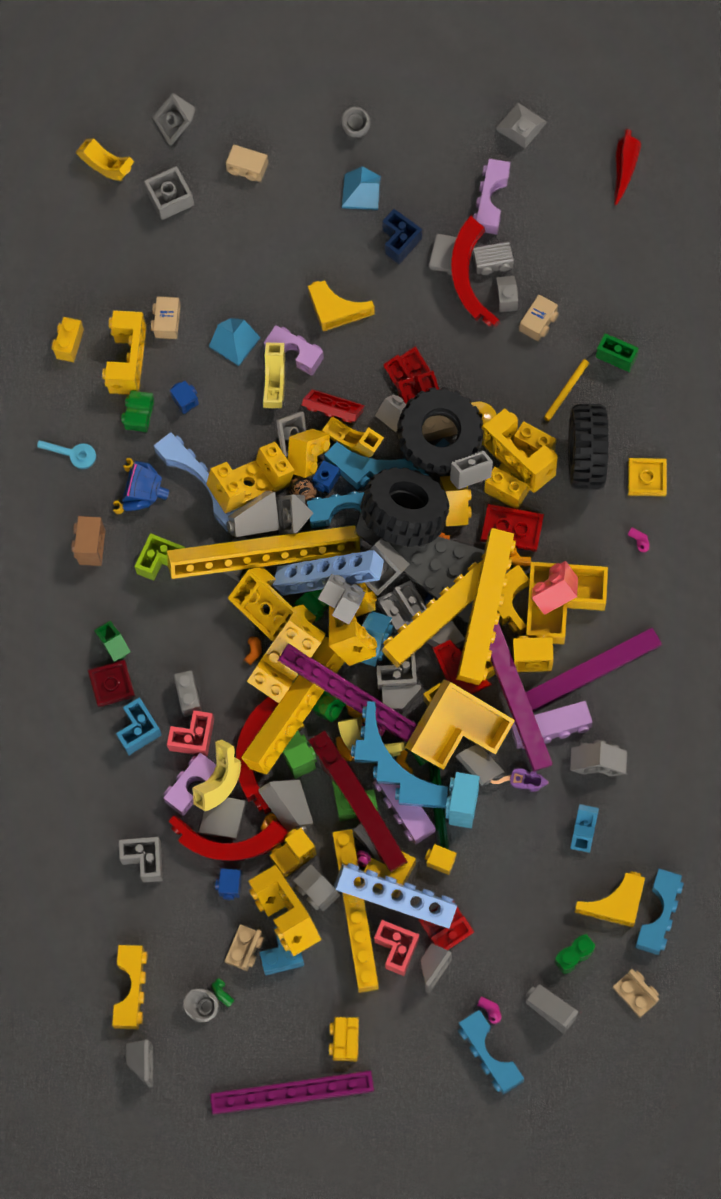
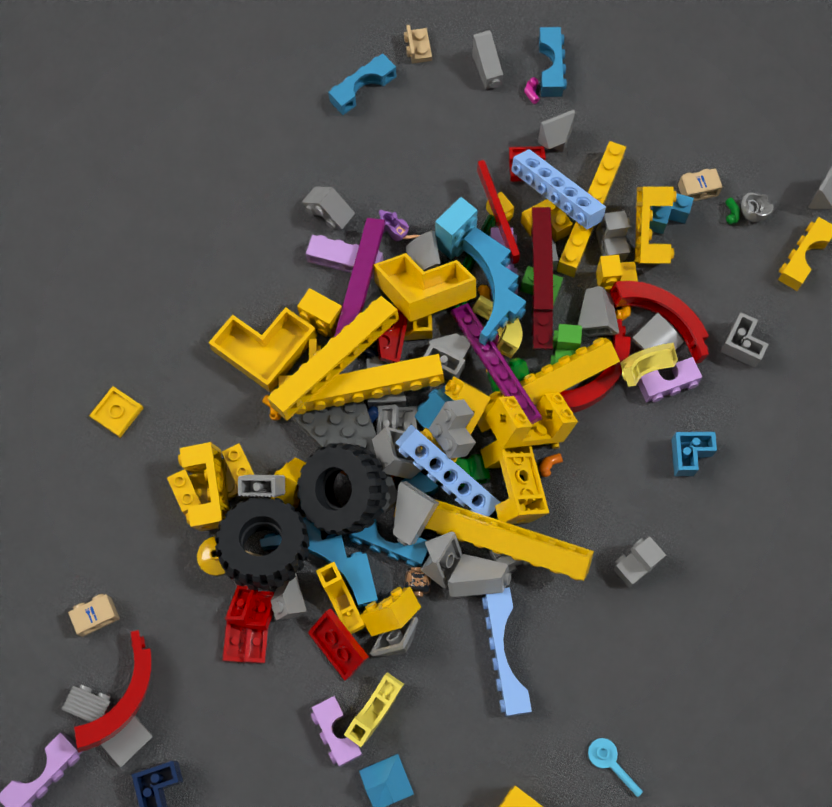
camera: 150 degrees left, 0 degrees up
(89, 540) = (646, 650): medium nougat brick -> none
(111, 683) = (693, 508): dark red plate -> none
(112, 641) = (673, 545): green slope -> none
(131, 609) = (644, 557): none -> light grey brick
(138, 411) = (524, 763): green brick -> none
(141, 487) = (565, 678): blue torso -> none
(154, 555) = (586, 601): lime brick -> none
(184, 396) = (470, 750): blue brick -> none
(187, 693) = (630, 457): light grey brick -> none
(195, 739) = (647, 411): coral brick -> none
(229, 883) = (682, 284): blue brick -> none
(244, 947) = (695, 233): tan bracket -> none
(267, 473) = (439, 616): yellow plate -> none
(267, 999) = (700, 184): none -> tan brick
(291, 1092) = (717, 118): magenta tile -> none
(326, 477) = (388, 580): blue brick -> none
(334, 310) = (274, 754): yellow arch -> none
(338, 527) = (412, 513): none -> light grey slope
(343, 750) = (526, 337): light orange arm -> none
(345, 1039) = (655, 126): yellow brick -> none
(363, 858) = (561, 238): dark pink arm -> none
(402, 946) = (574, 160): coral brick -> none
(436, 841) = (498, 211): none -> red tile
(507, 293) = (101, 661): light grey slope -> none
(522, 523) = (259, 435): red plate -> none
(557, 590) = (261, 343): coral brick -> none
(565, 391) = (122, 532): yellow bar -> none
(569, 957) = (445, 88): green brick -> none
(584, 828) = (376, 167): dark azure brick -> none
(588, 446) = (145, 446): black tyre -> none
(593, 669) = (278, 282): magenta tile -> none
(617, 352) = (53, 533): green brick -> none
(620, 906) = (388, 103): yellow arch -> none
(641, 539) = (163, 360): dark pink arm -> none

